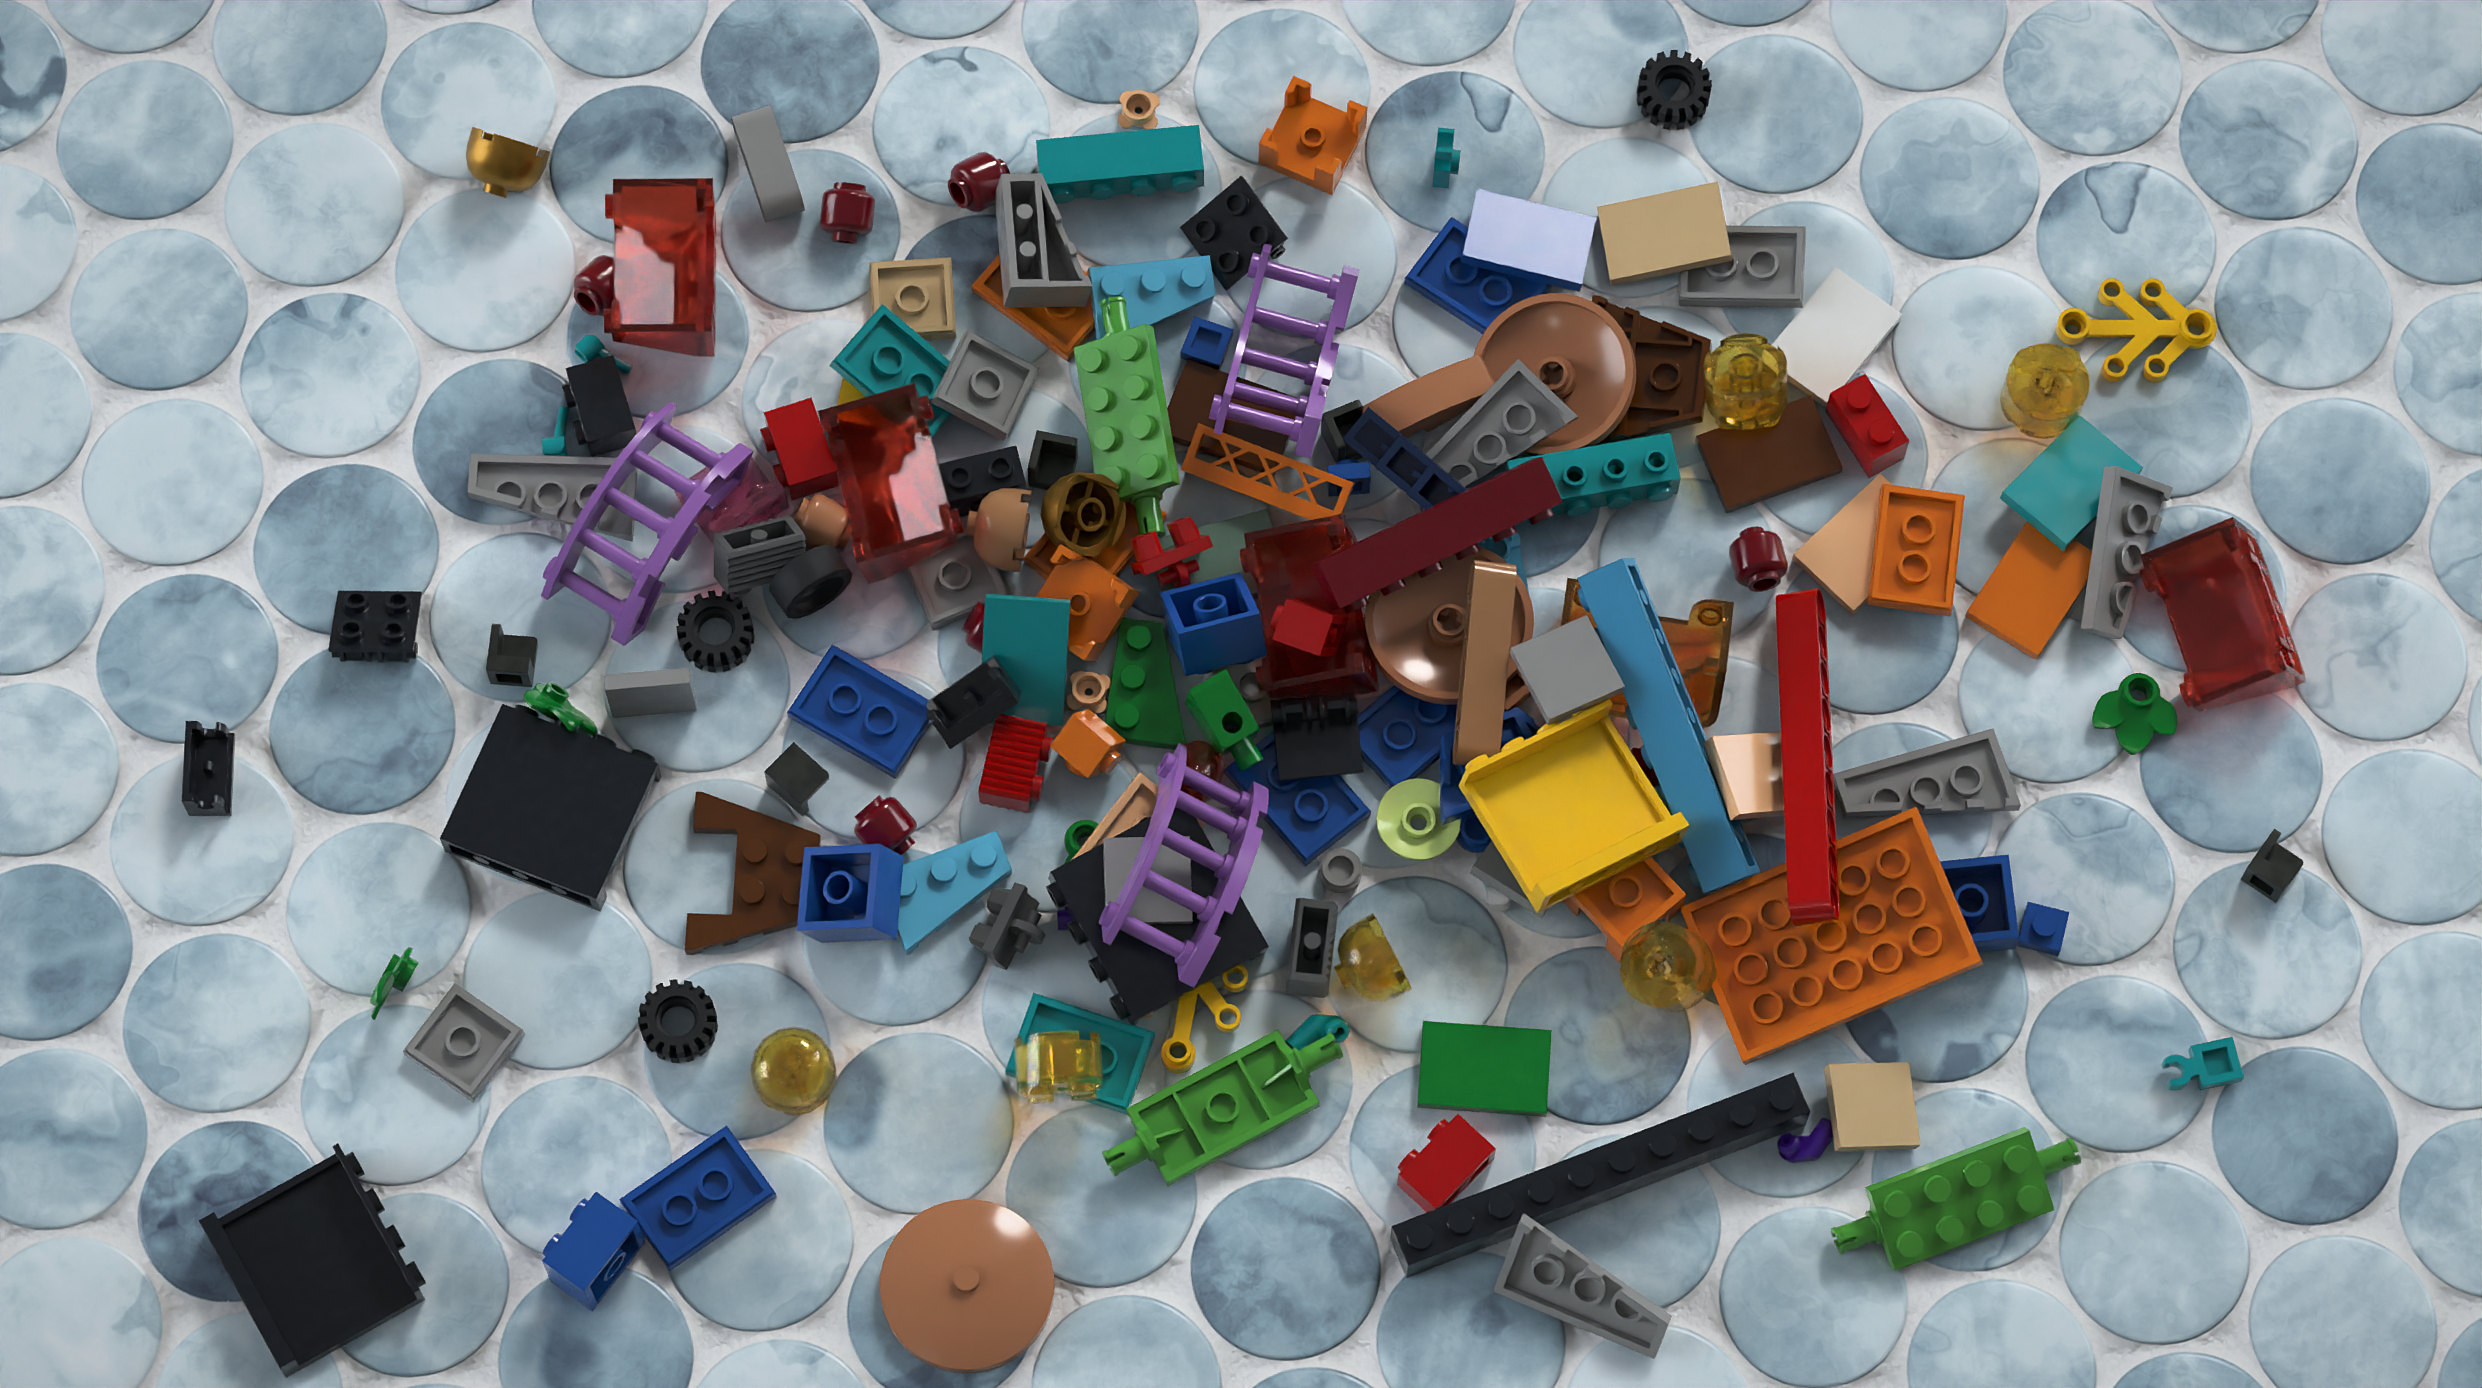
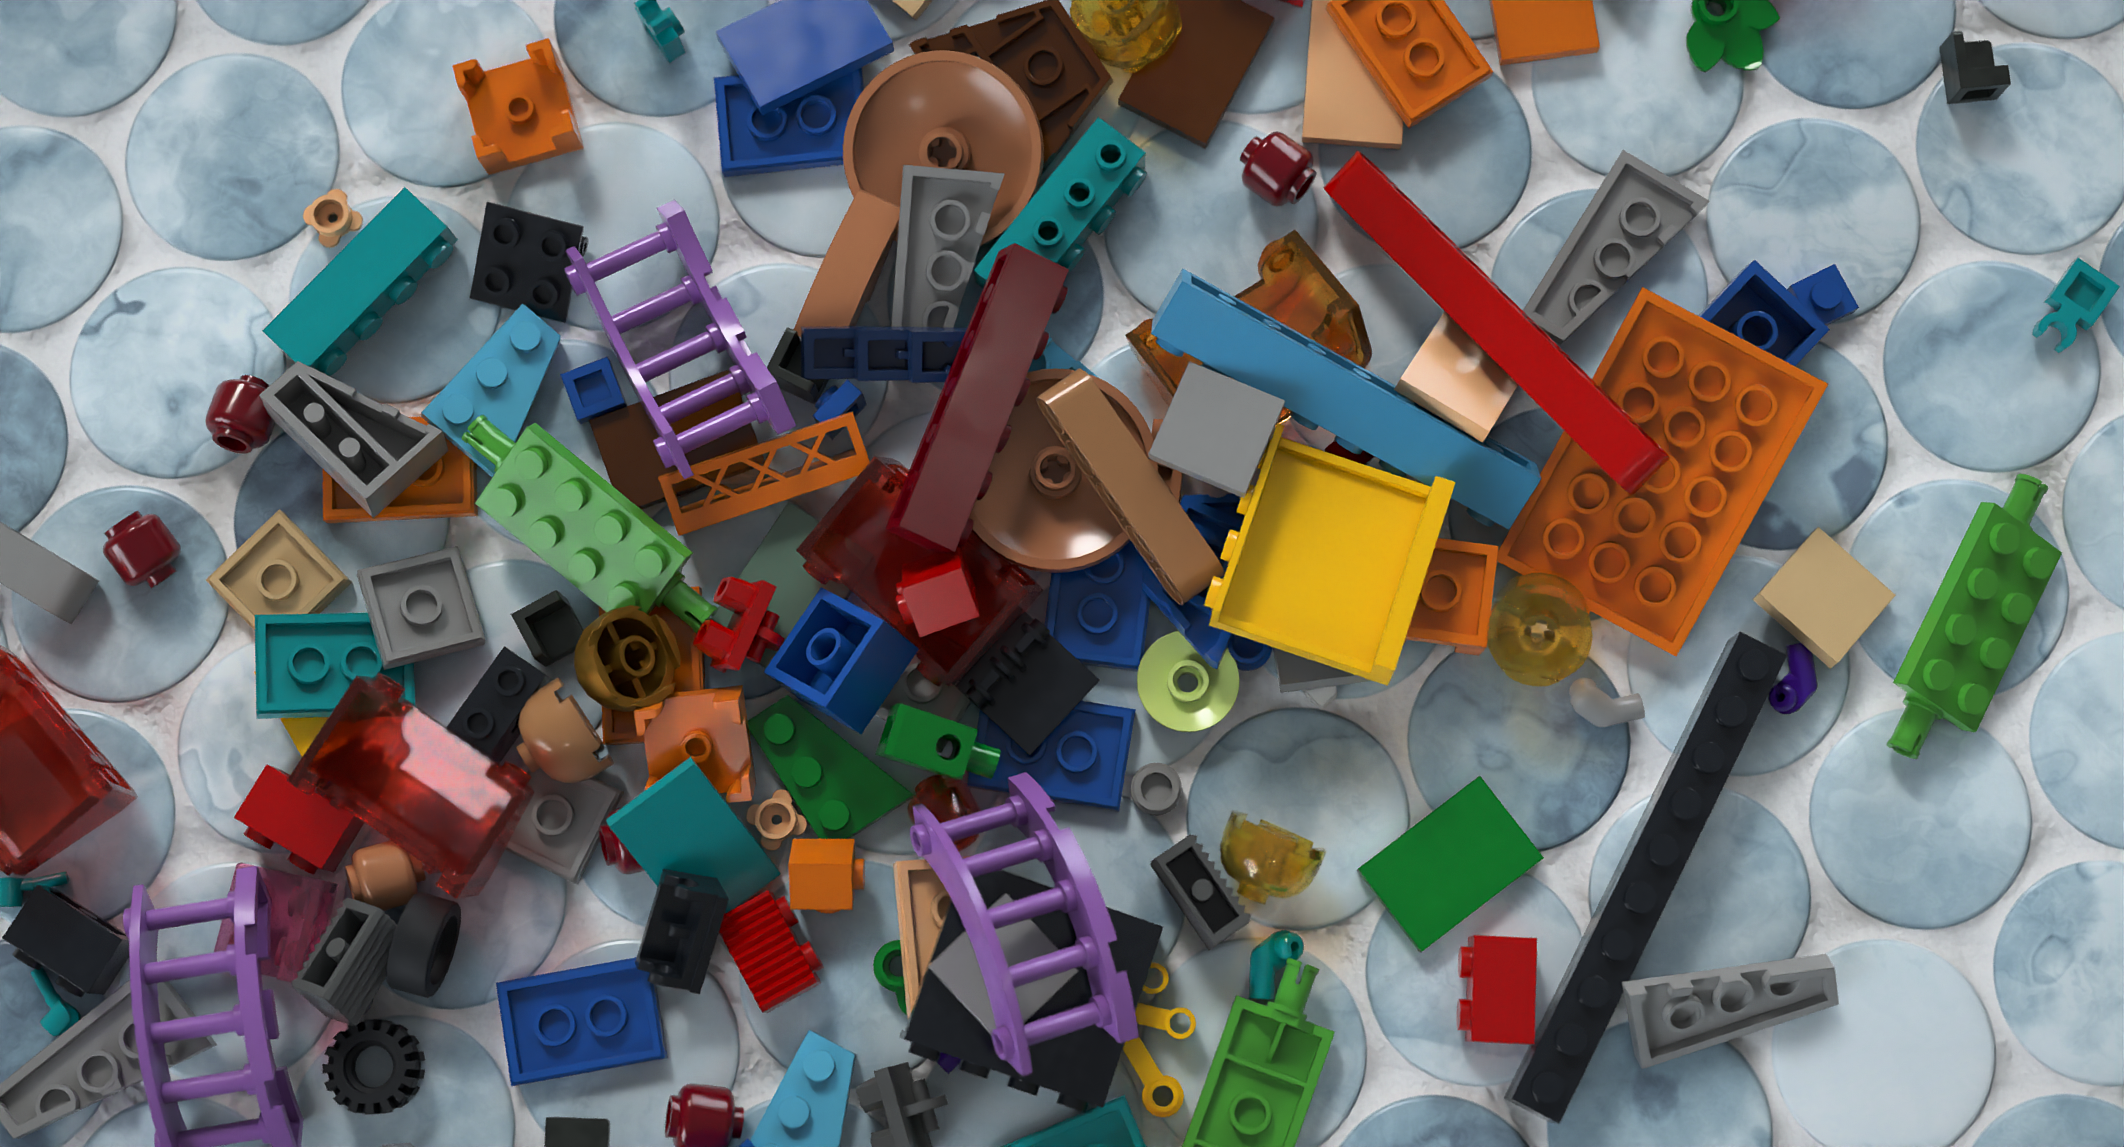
camera: 35 degrees left, 10 degrees up
(1666, 1056) = (1600, 708): none -> light grey arm

